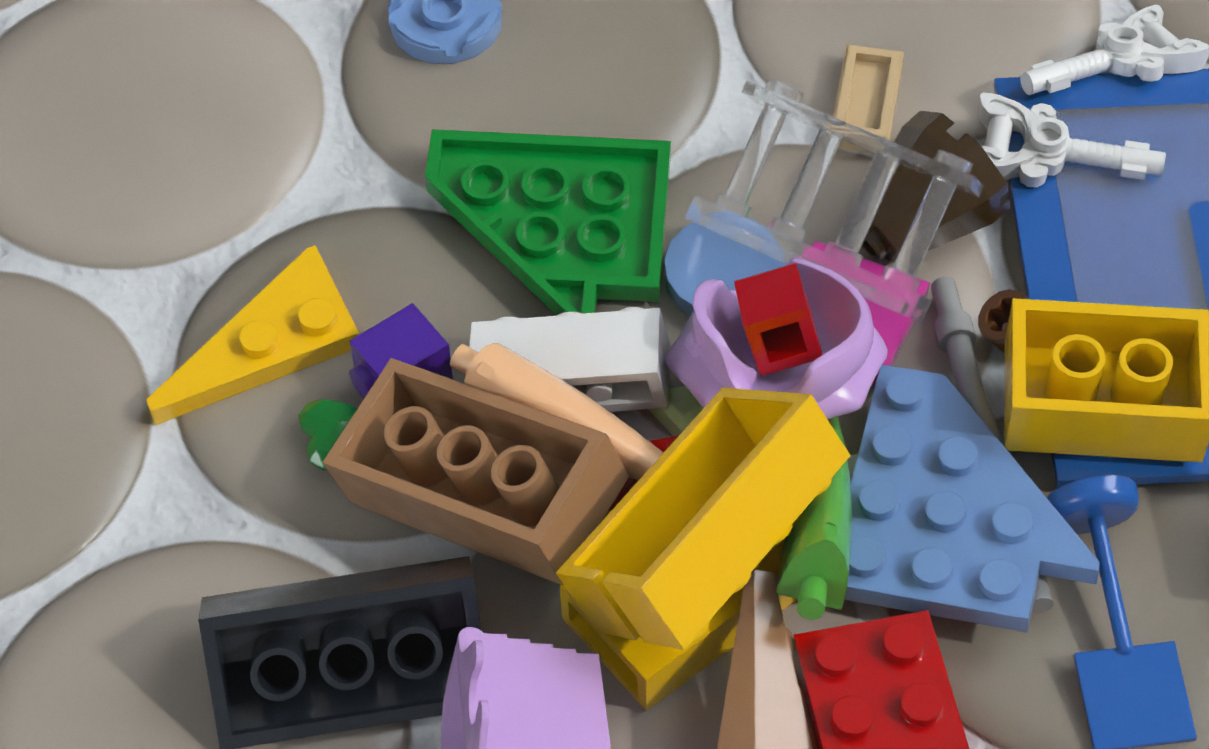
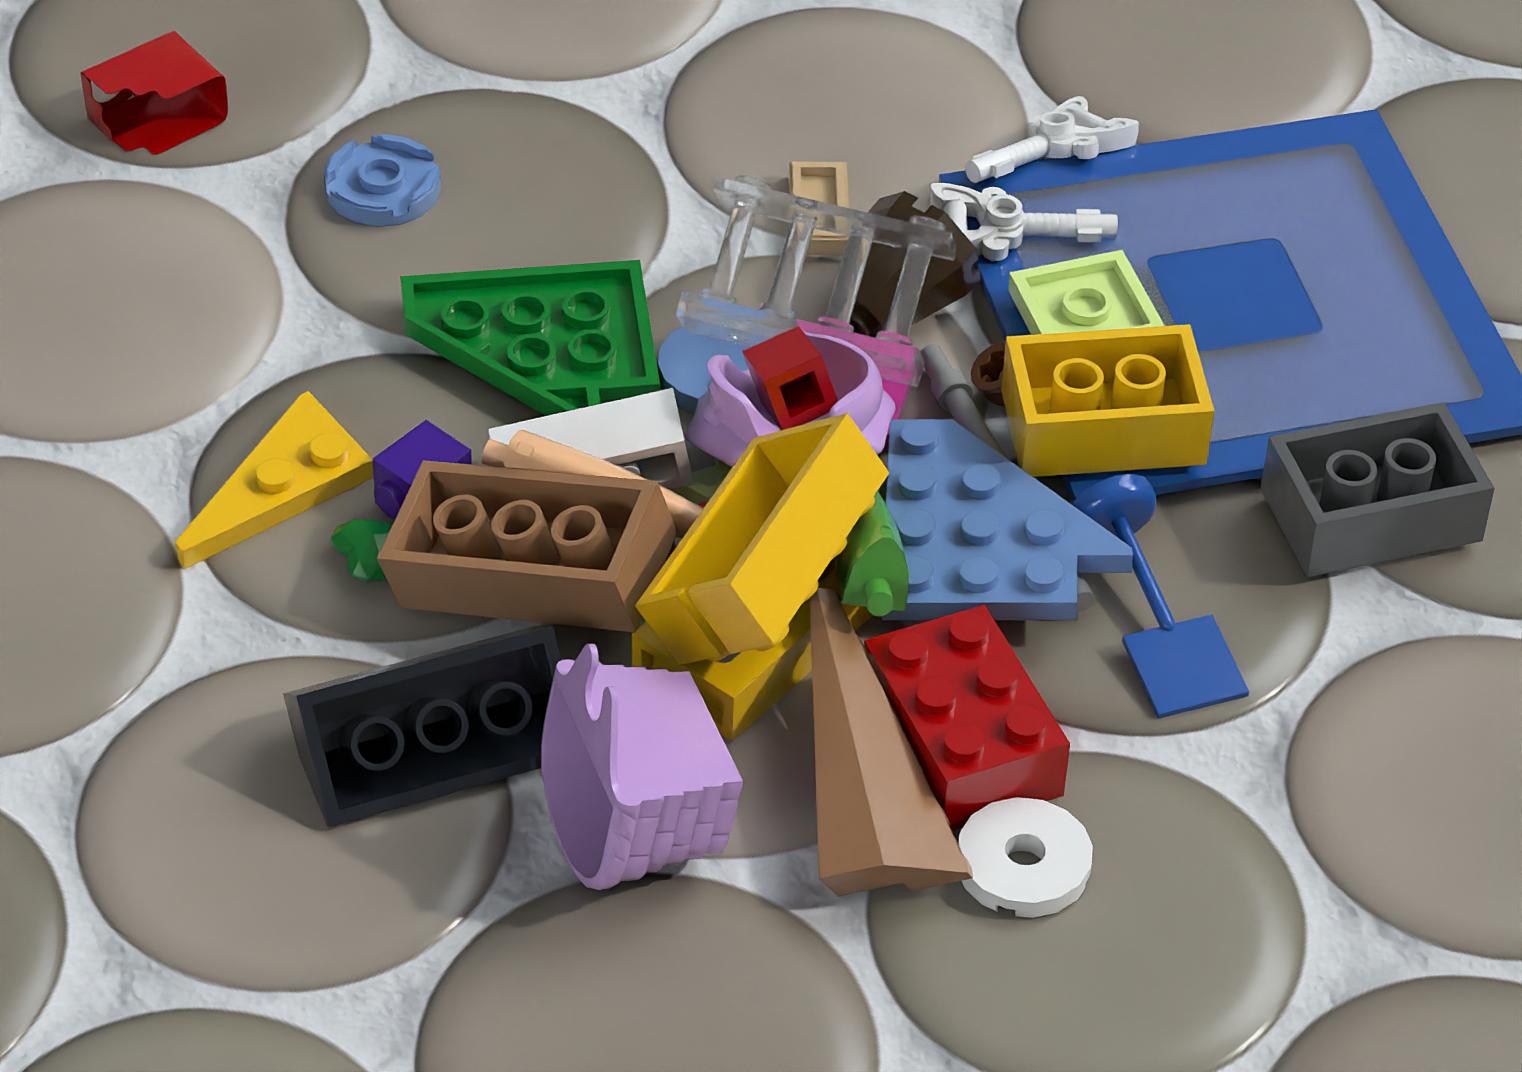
camera: 15 degrees left, 10 degrees down
(1112, 254) = (1082, 296): none -> yellowish green plate

